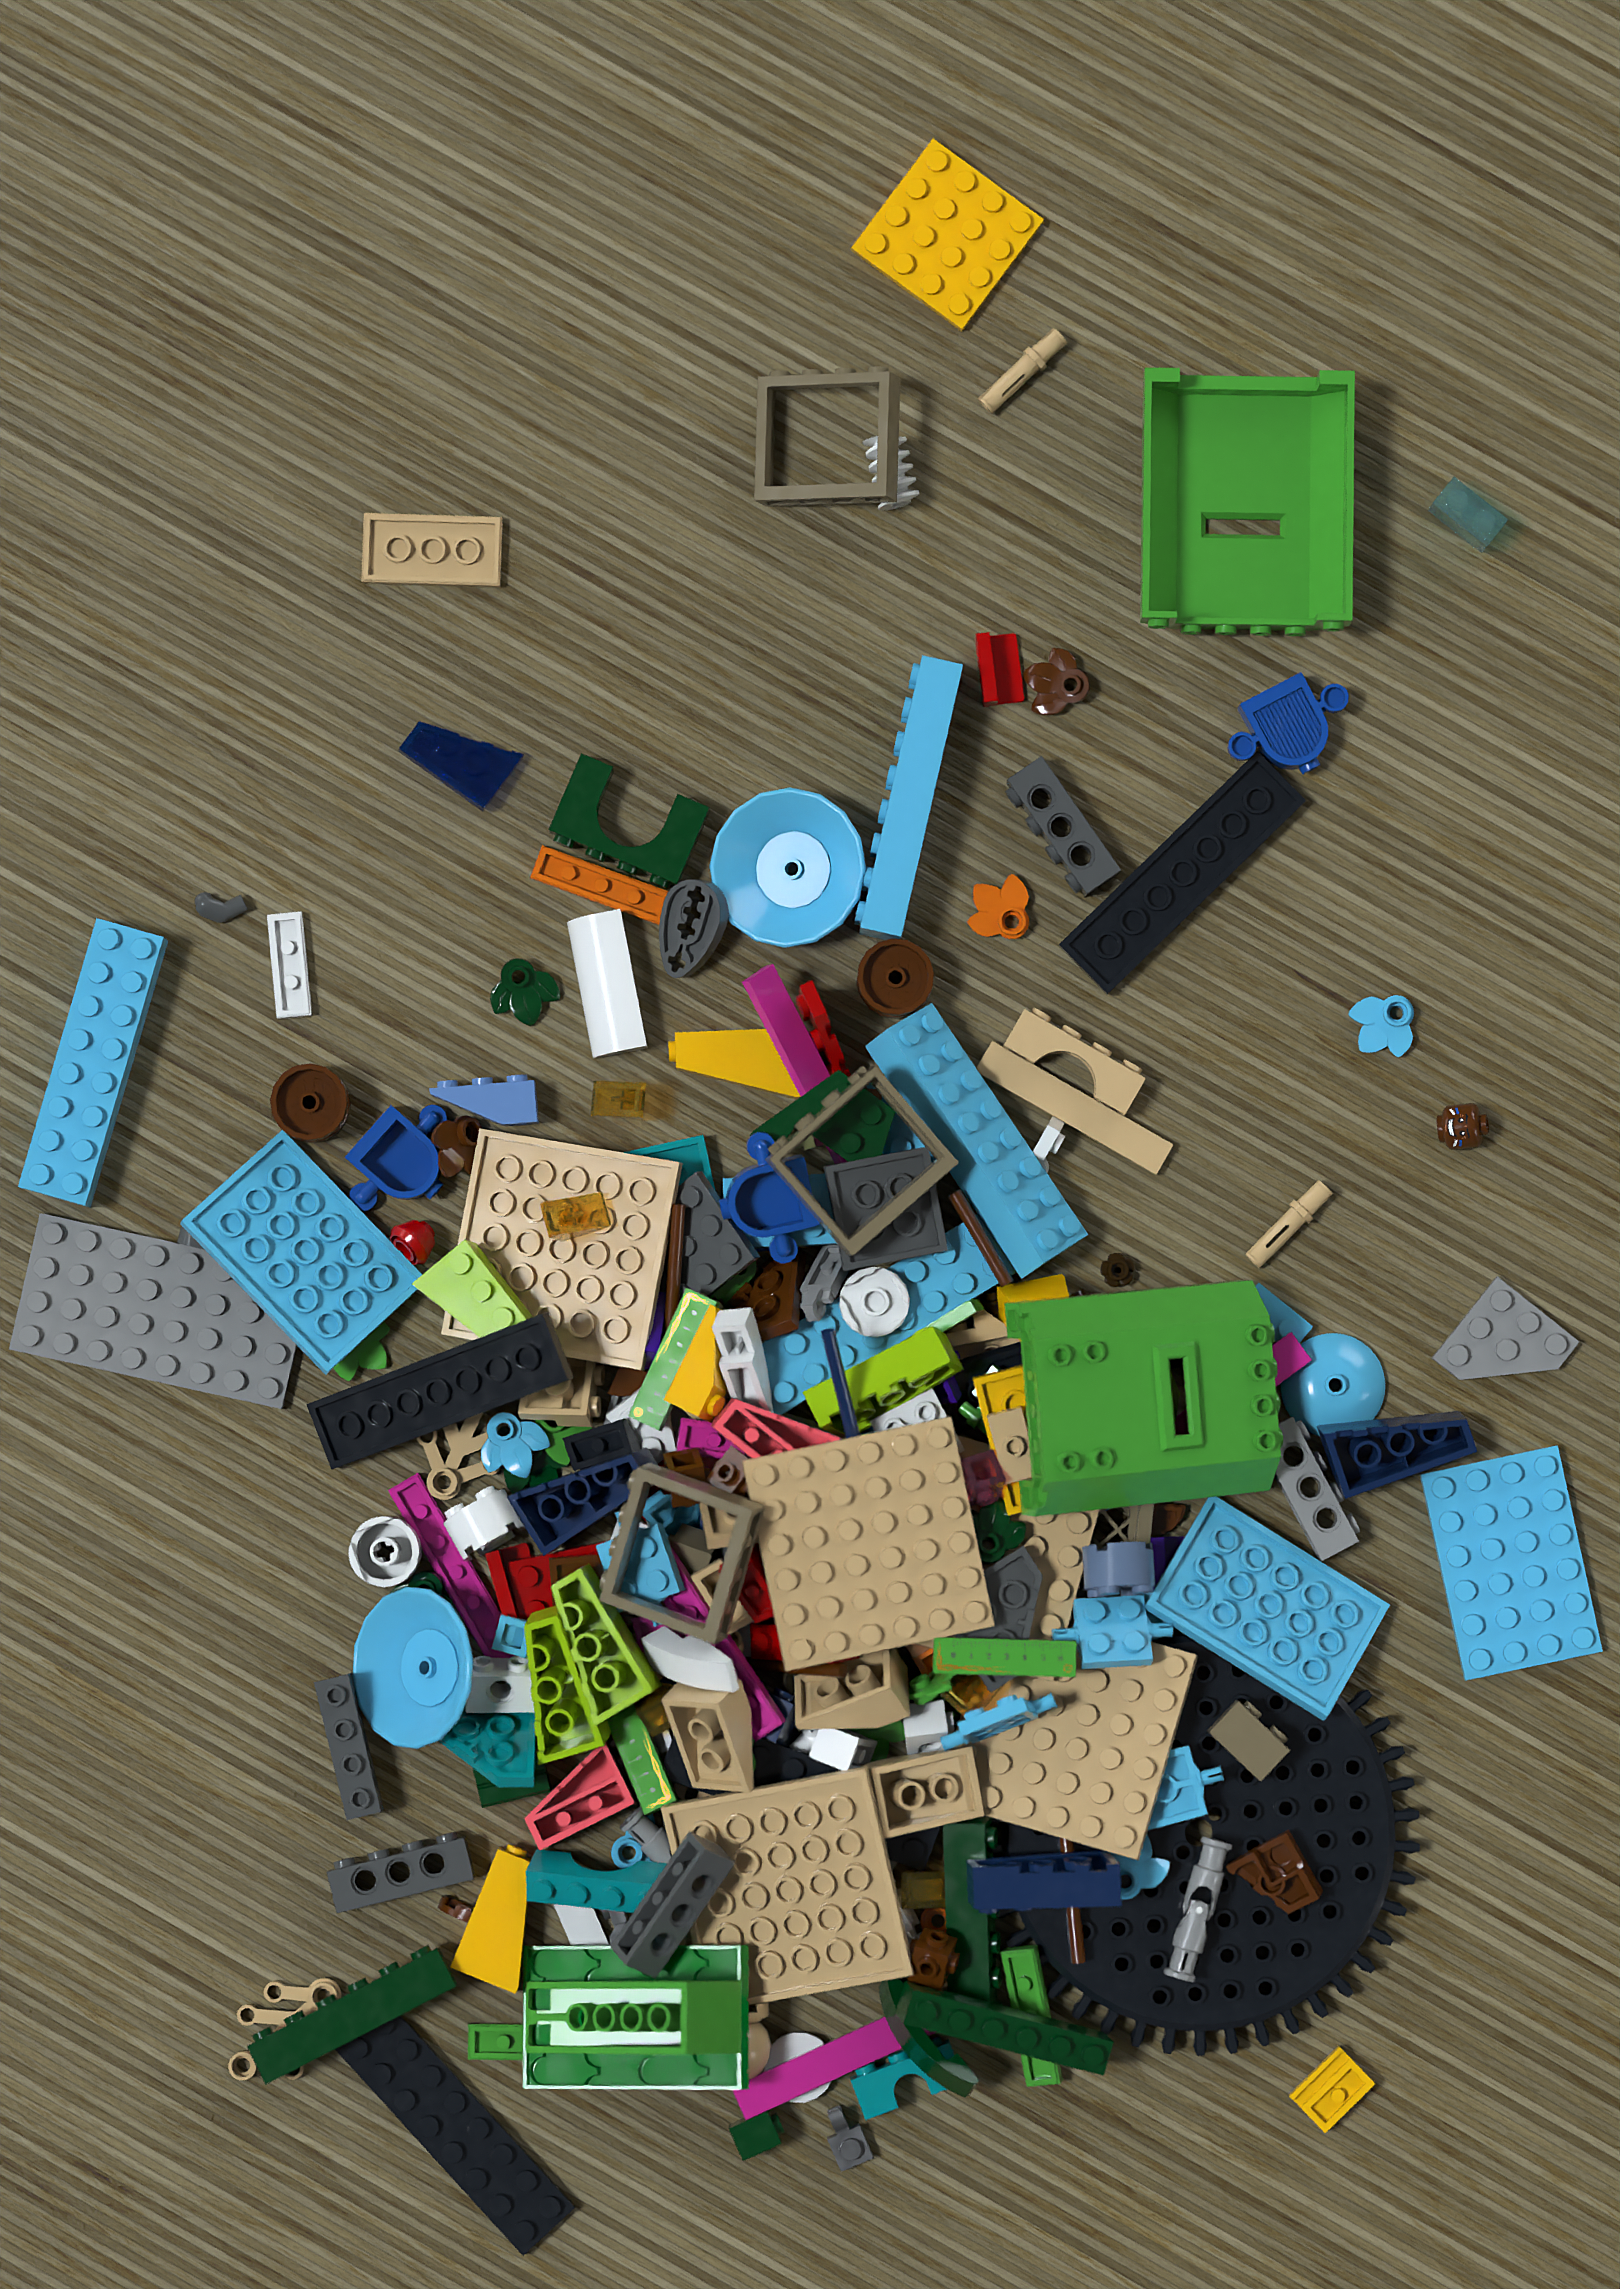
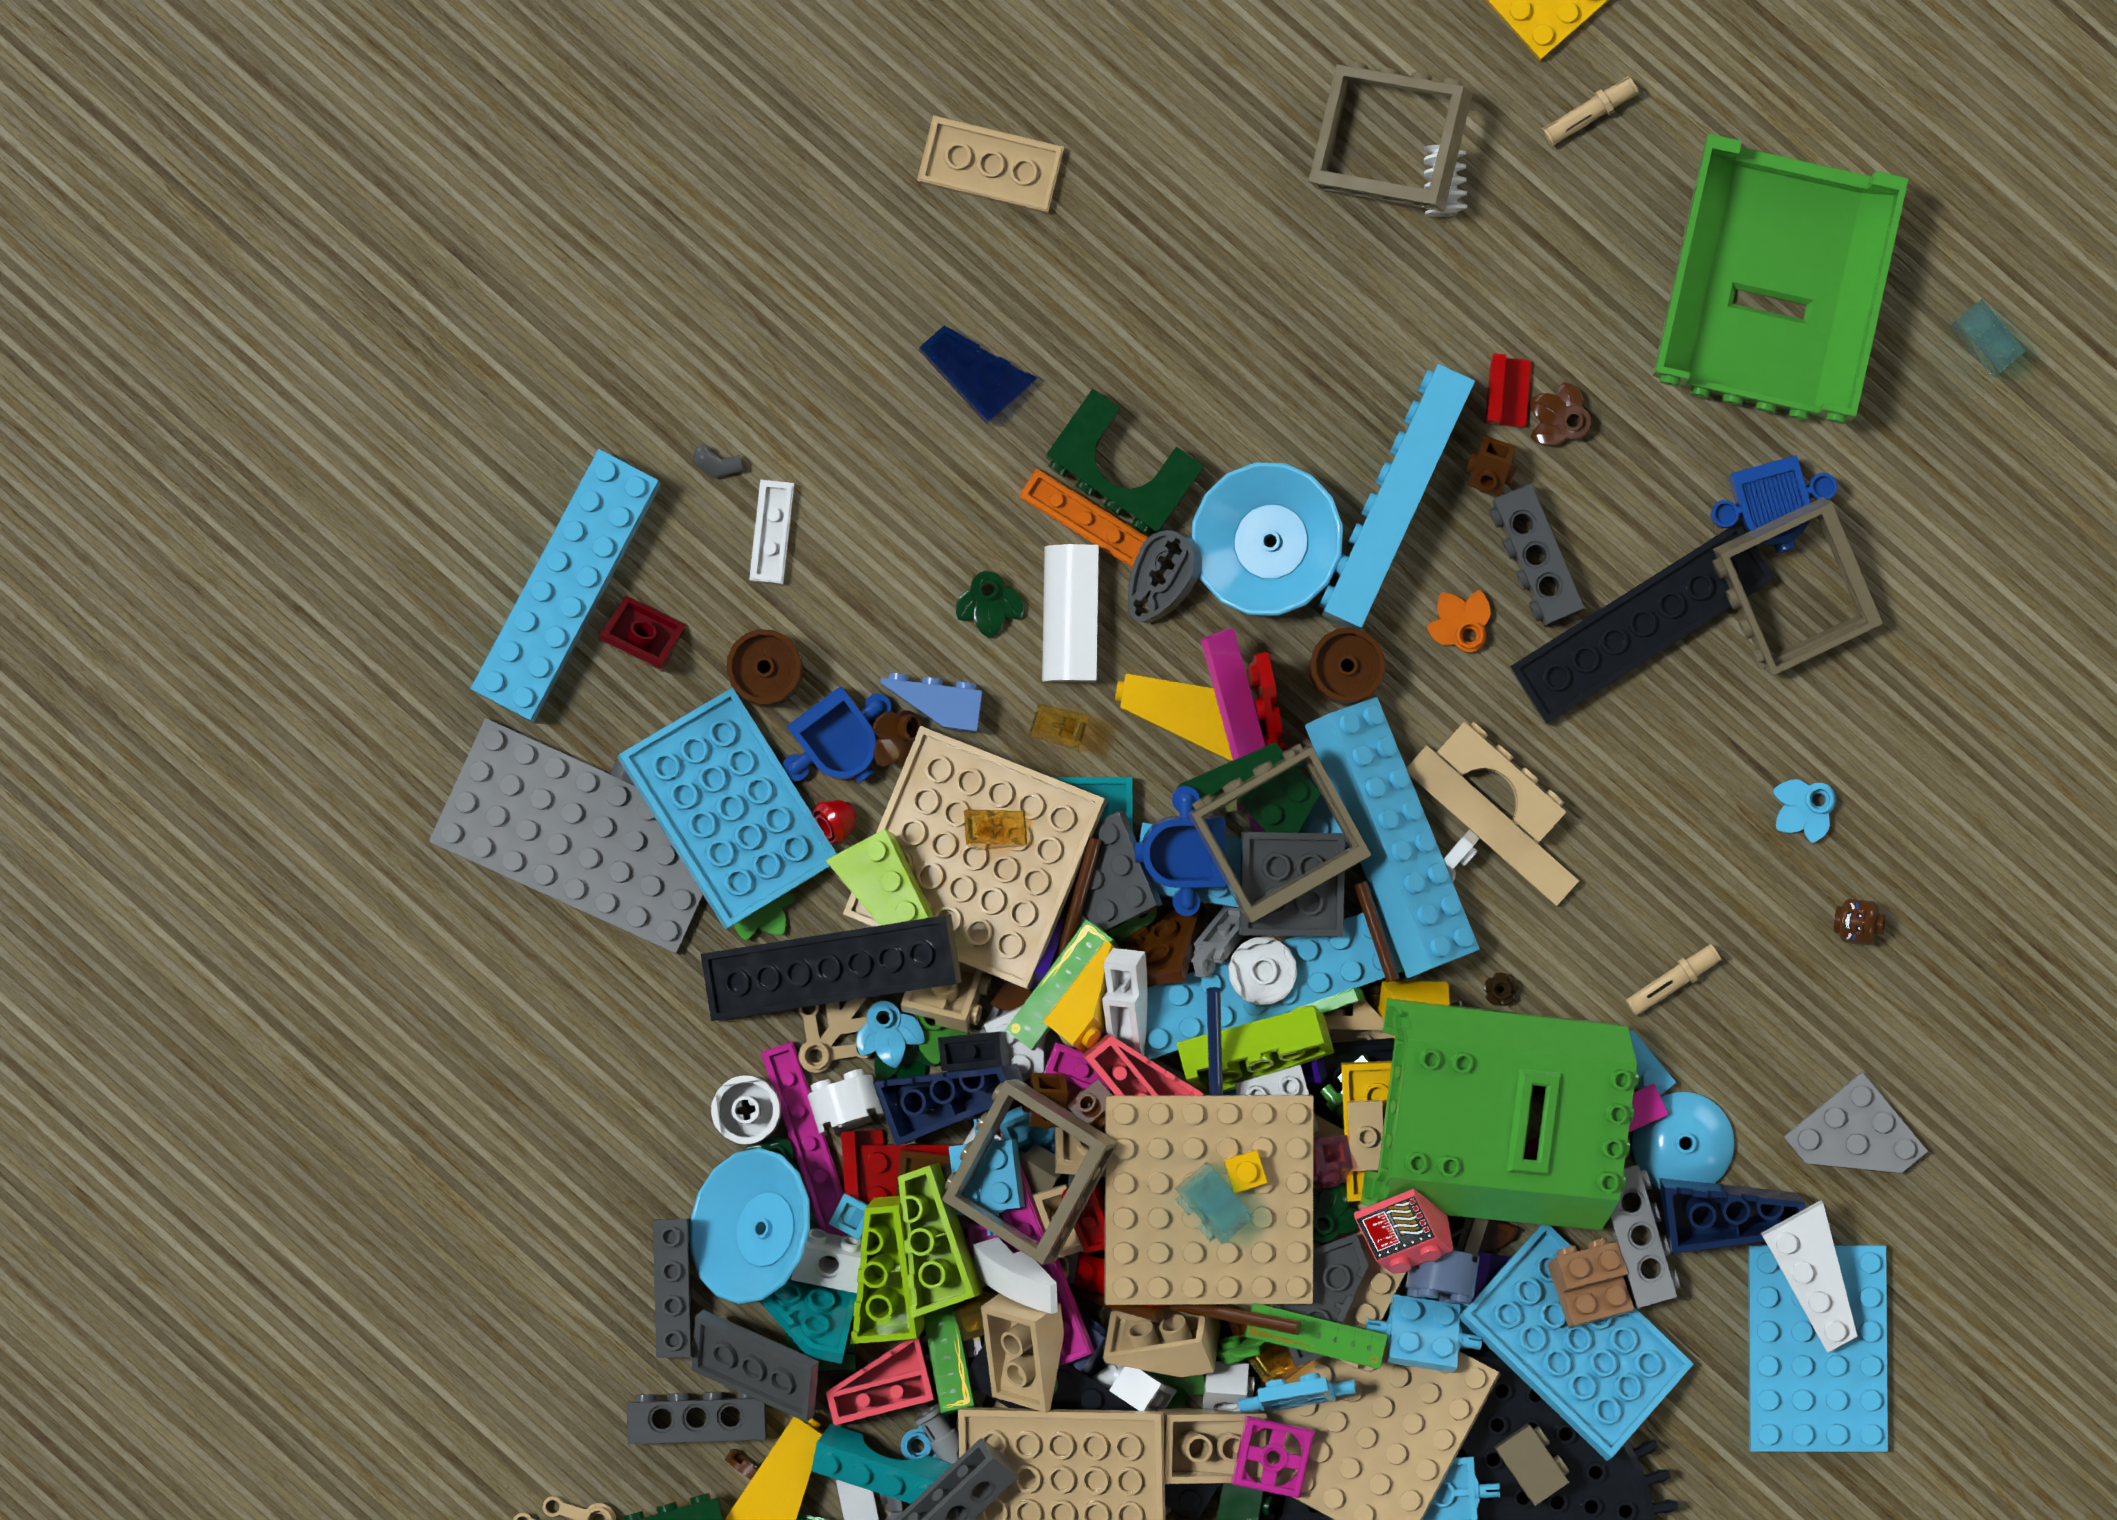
camera: 15 degrees right, 0 degrees up
(180, 1094) = (642, 633): none -> dark red slope
(447, 1807) = (755, 1365): none -> dark grey plate
(872, 1546) = (1213, 1204): none -> clear light blue brick
(898, 1507) = (1245, 1171): none -> yellow plate
(924, 1654) = (1241, 1317): none -> reddish brown bar
(959, 1788) = (1294, 1485): none -> dark pink piece
(998, 747) = (1492, 466): none -> reddish brown brick
(1071, 1533) = (1405, 1231): none -> slope
(1270, 1545) = (1591, 1282): none -> medium nougat plate
(1406, 816) = (1848, 566): none -> dark tan window
(1486, 1481) = (1812, 1269): none -> white wing

